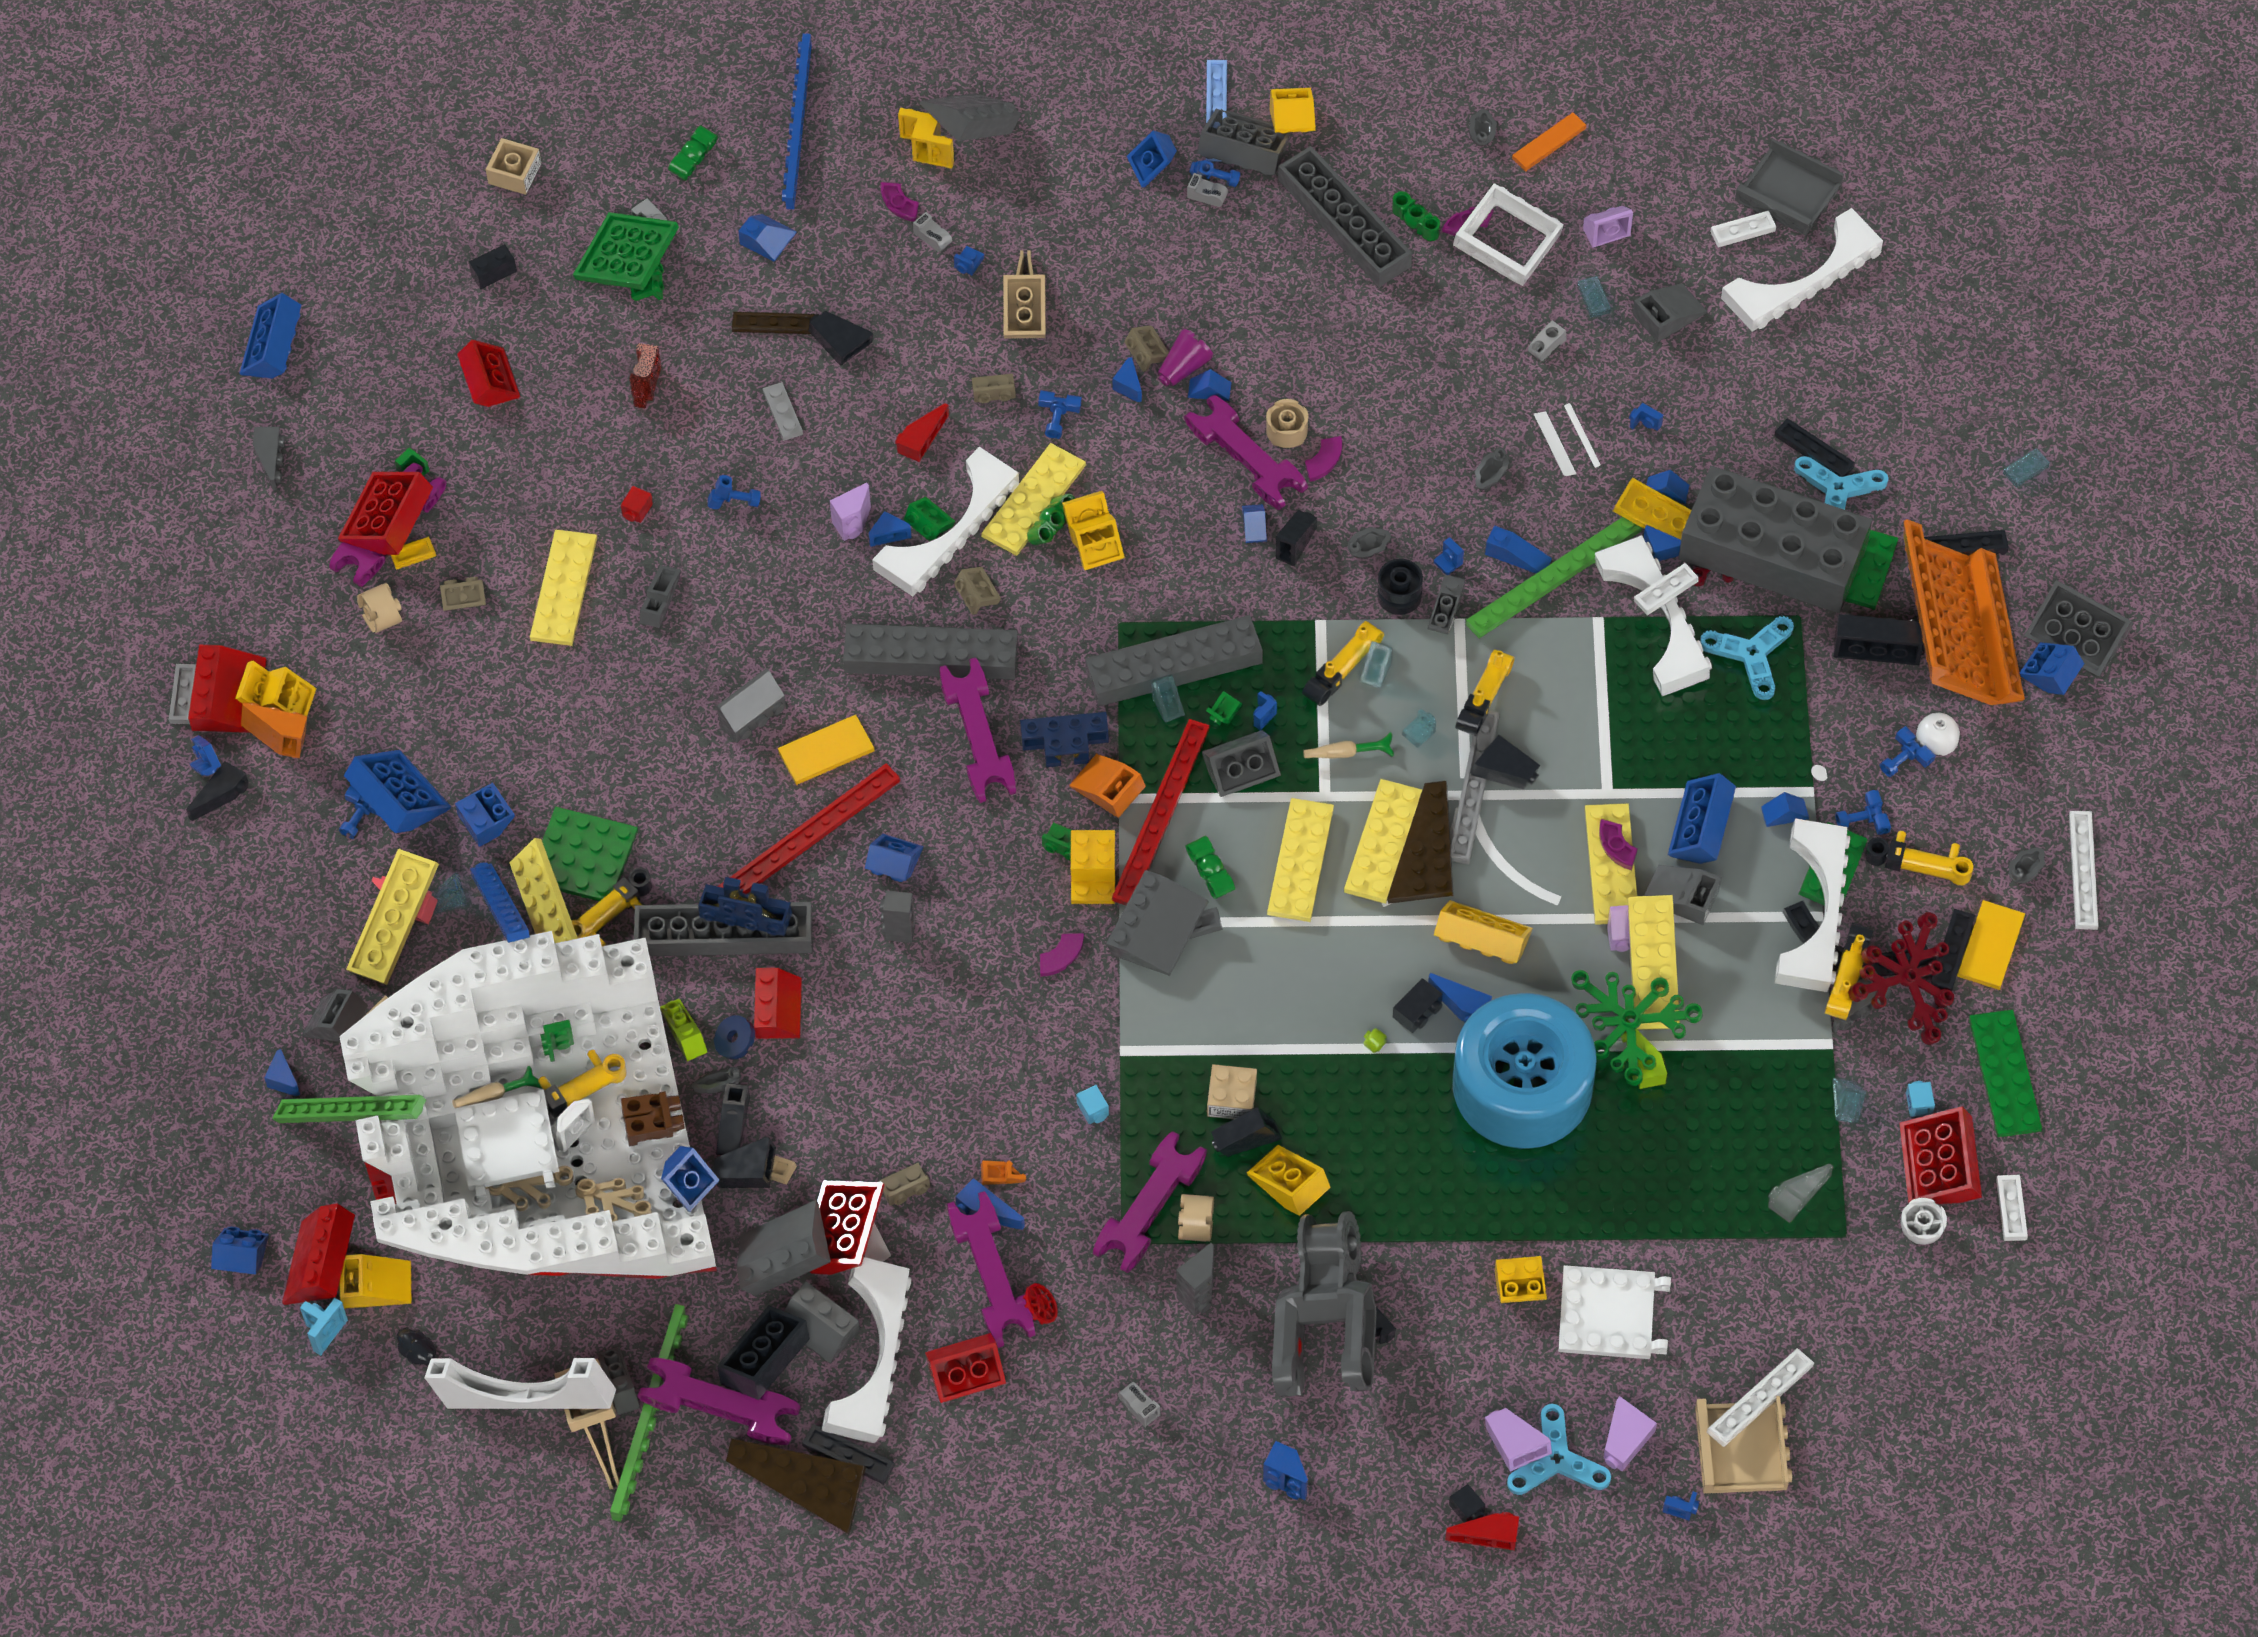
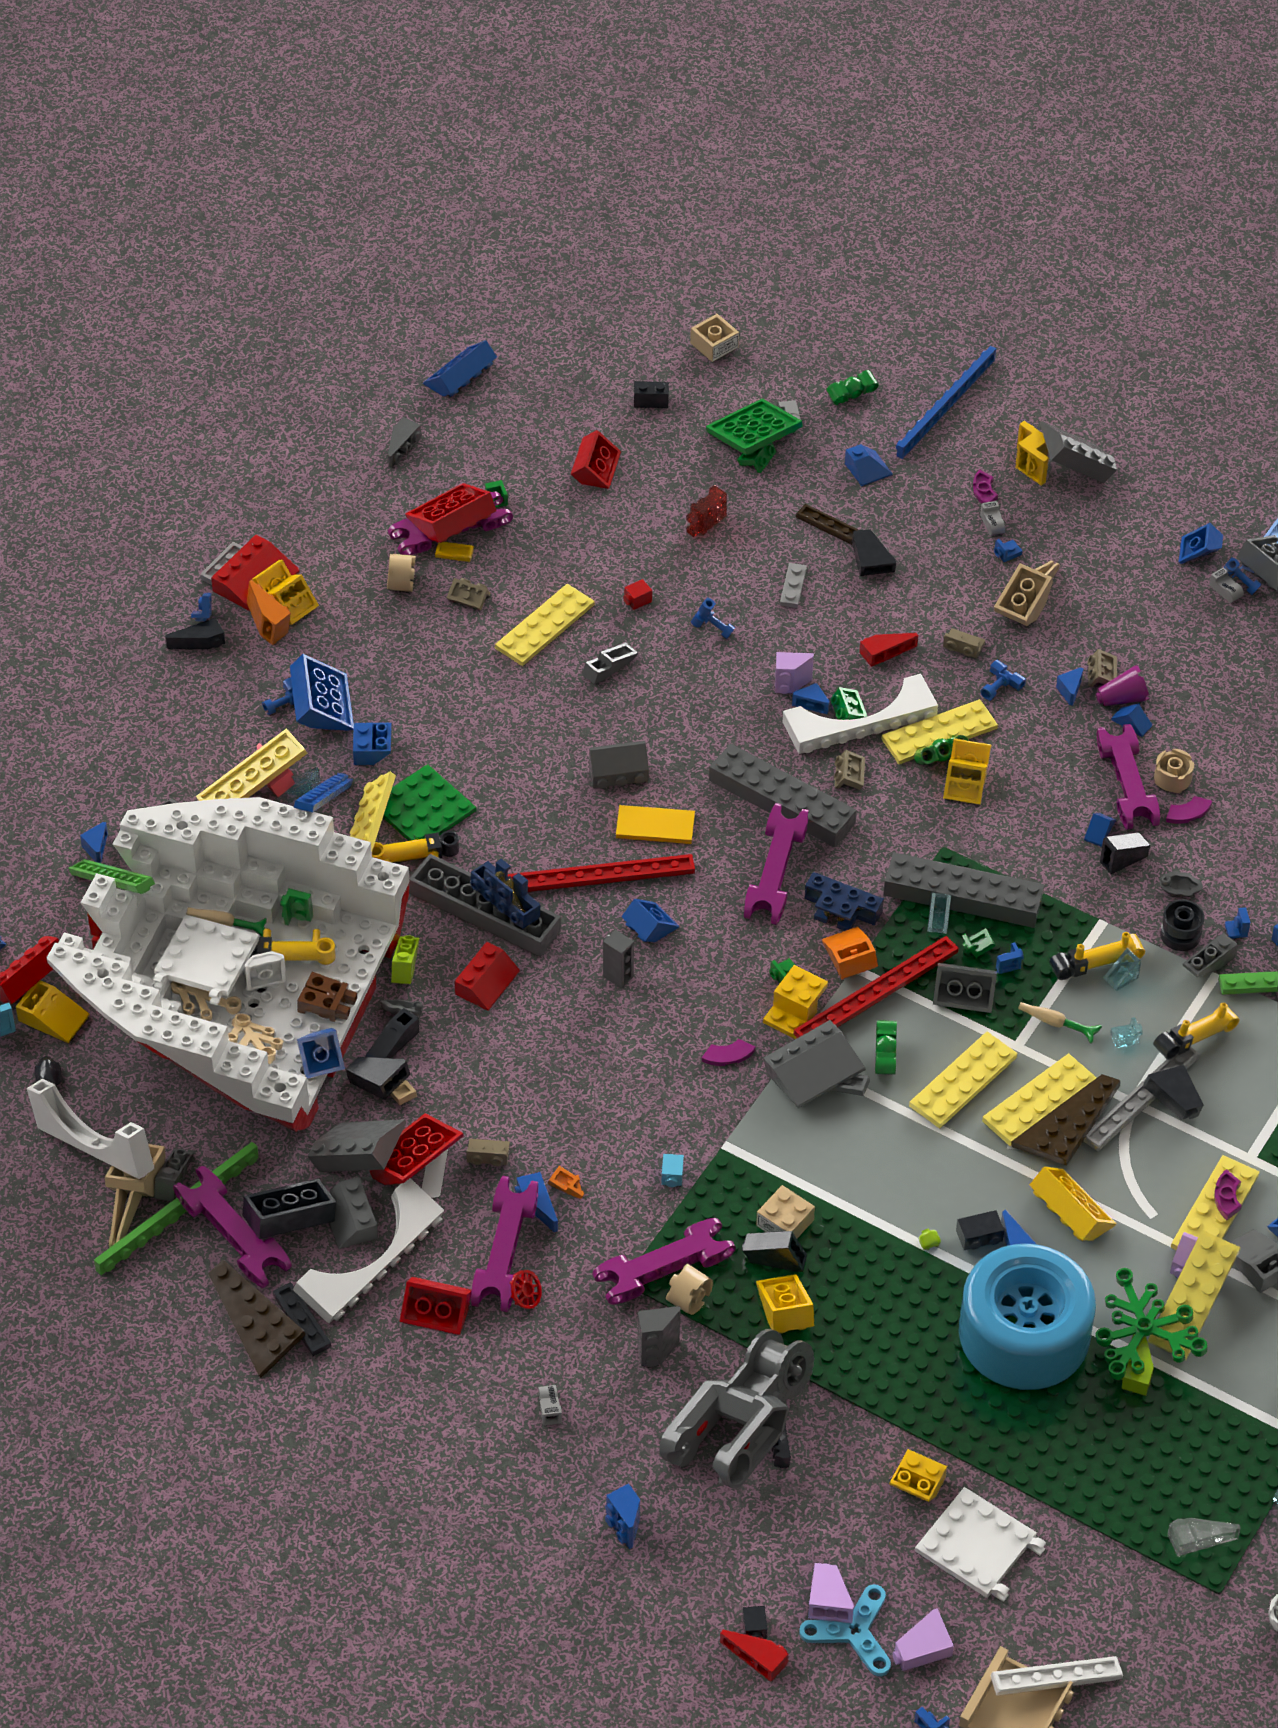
camera: 30 degrees right, 10 degrees down
(724, 1035) = (437, 982): dark blue tile -> none

